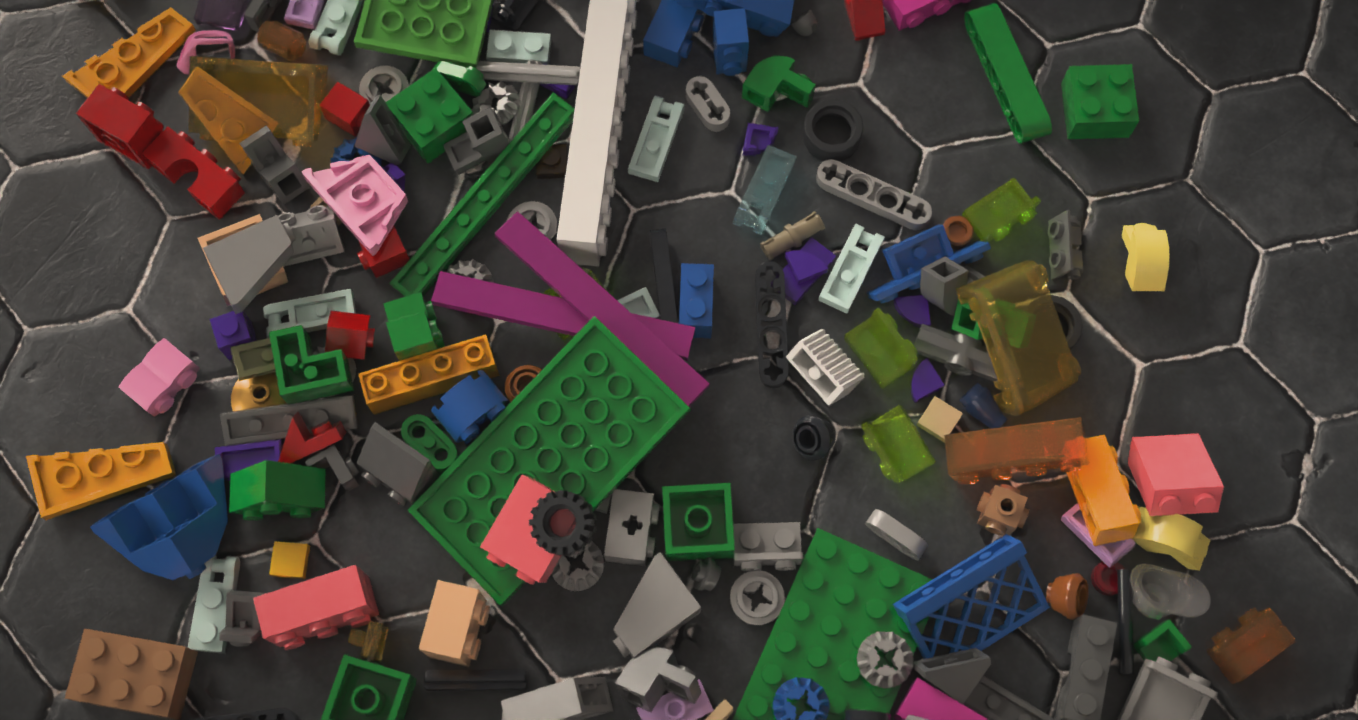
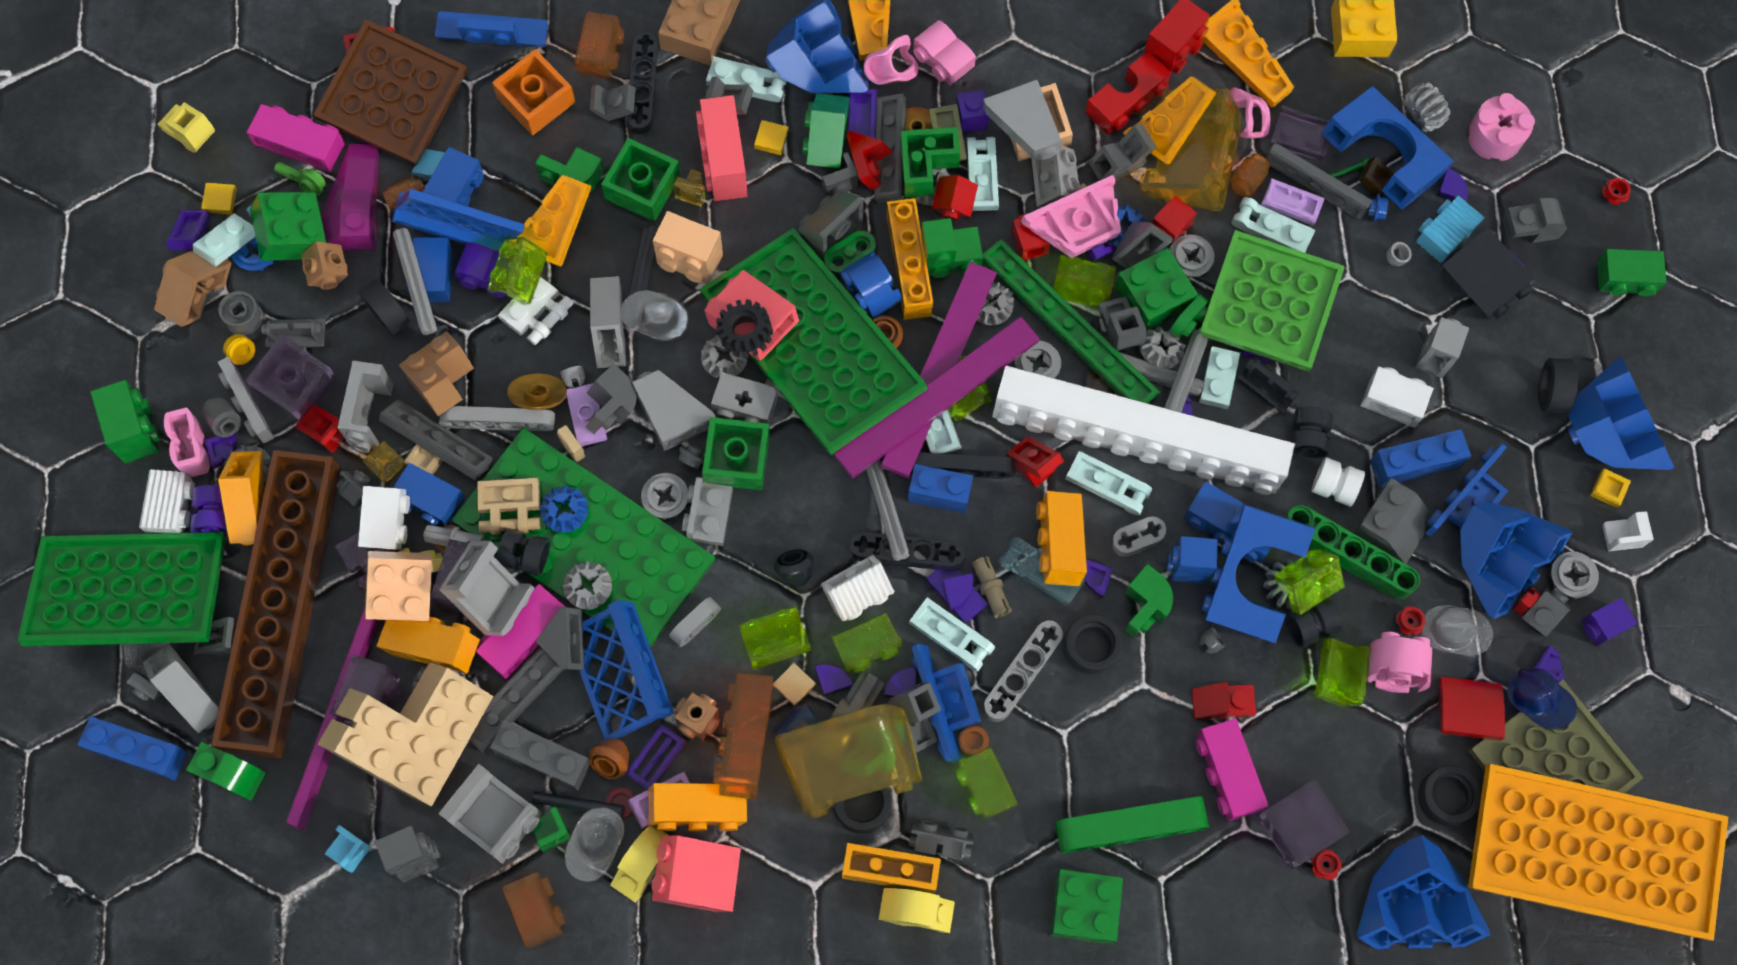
camera: 95 degrees right, 0 degrees up
(183, 446) = (879, 65): none -> bright pink piece
(428, 189) = (1084, 281): none -> clear neon green bracket
(543, 646) = (654, 315): none -> clear piece
(645, 209) = (1035, 460): none -> red slope
(731, 168) = (1062, 538): none -> light orange brick
(740, 345) = (887, 511): none -> light grey axle
(1058, 539) = (640, 779): none -> dark purple tile
(1113, 285) = (891, 868): none -> light orange brick

